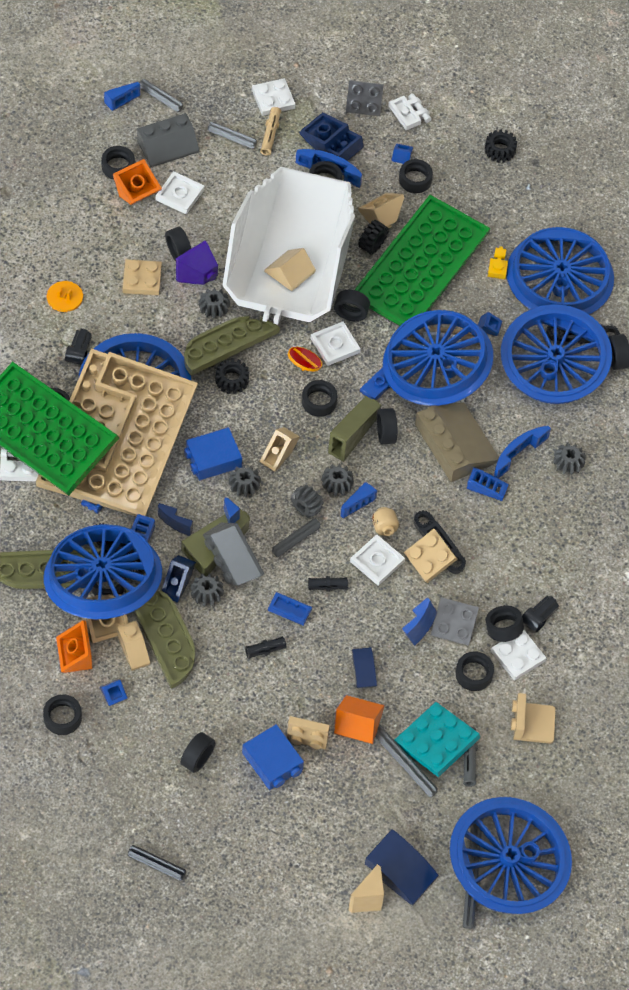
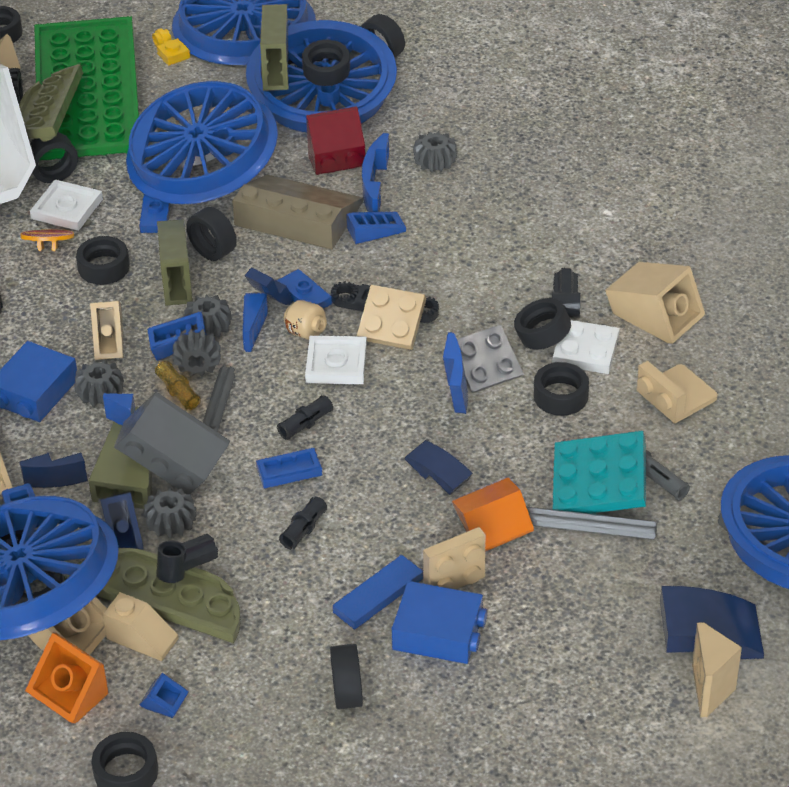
camera: 35 degrees left, 15 degrees down
(184, 624) = (178, 557): none -> black piece
(263, 715) = (377, 592): none -> blue tile
(283, 512) = (177, 385): none -> clear yellow pin
(300, 472) = (162, 338): none -> blue slope
(376, 267) = (46, 104): none -> olive plate
(382, 487) = (269, 286): none -> dark blue slope
(405, 500) = (304, 288): none -> blue plate
(516, 411) = (335, 140): none -> dark red slope
(537, 318) = (274, 47): none -> olive slope
(561, 339) = (326, 75): none -> black tyre
(583, 656) = (657, 299): none -> tan slope

